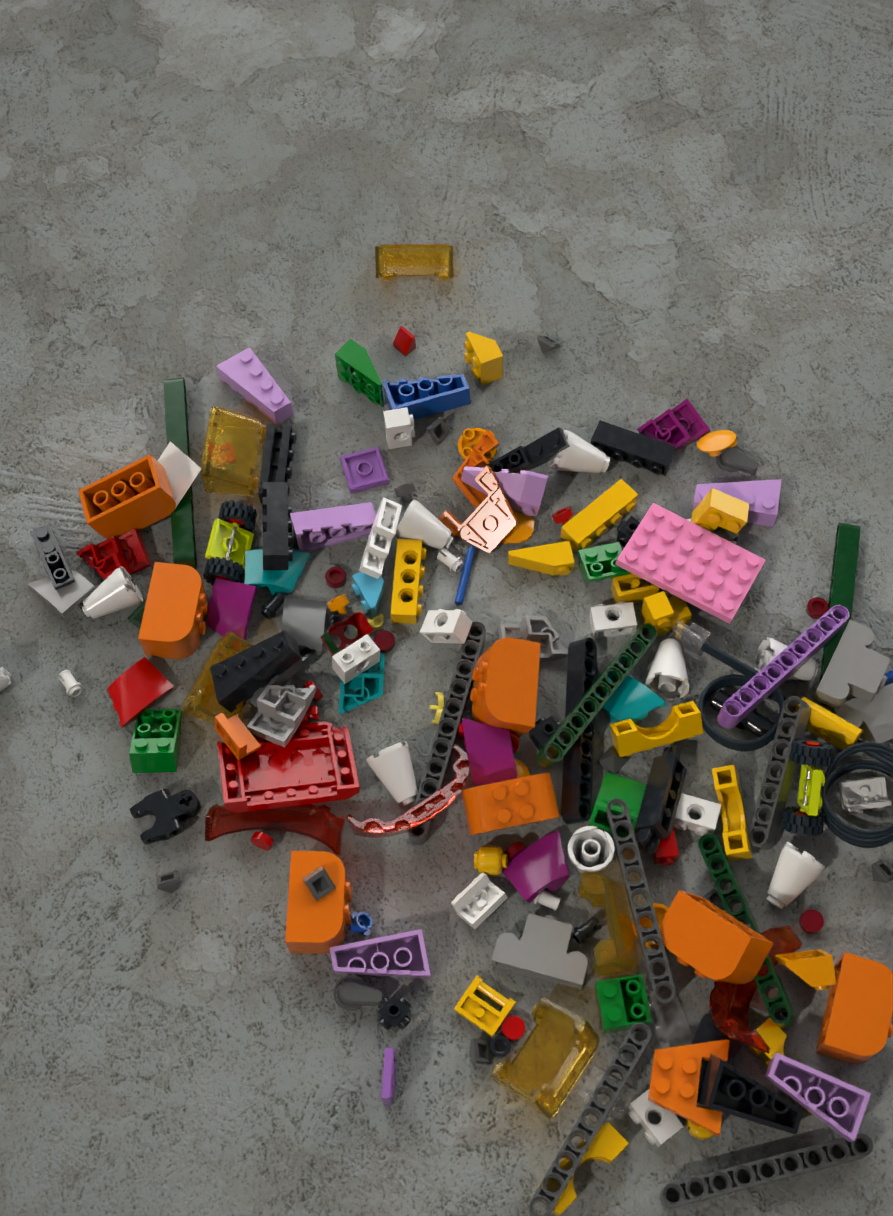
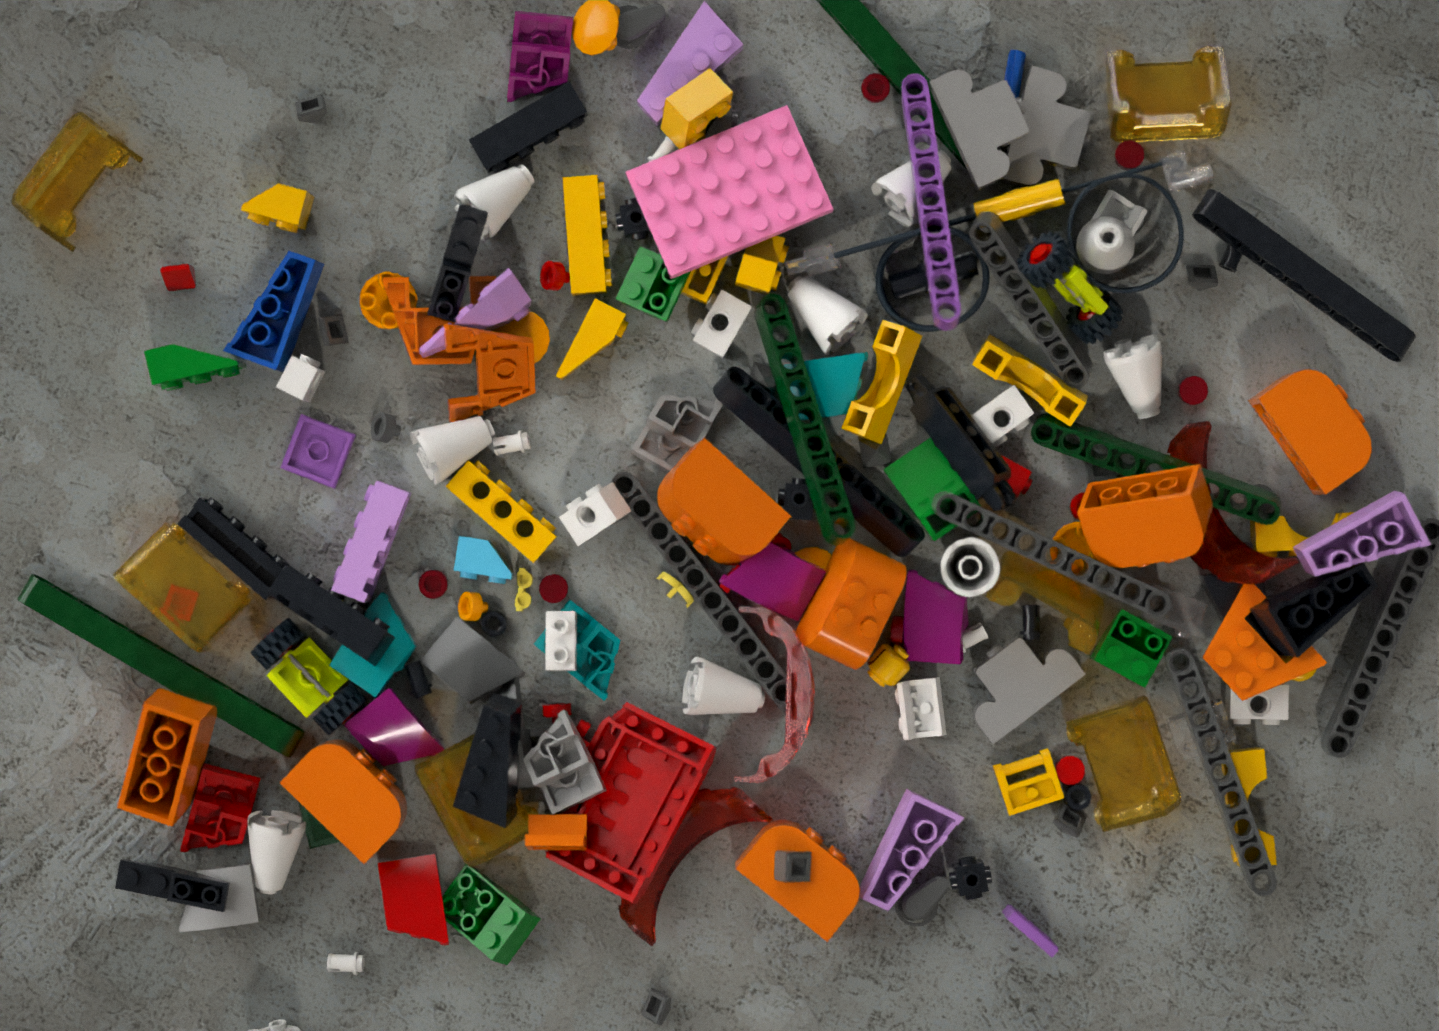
camera: 60 degrees left, 25 degrees up
(168, 812) = (581, 959): black piece -> none
(179, 469) = (170, 670): white sticker -> none
(252, 380) = (102, 497): lavender wedge -> none
(262, 840) = (687, 881): red tile -> none
(357, 620) = (535, 625): red piece -> none
(361, 923) = (855, 836): blue plate -> none
(380, 538) = (432, 506): white slope -> none
(465, 575) = (542, 441): blue bar -> none
(810, 966) = (1238, 440): light orange slope -> none
(851, 790) = (1102, 256): none -> white cone

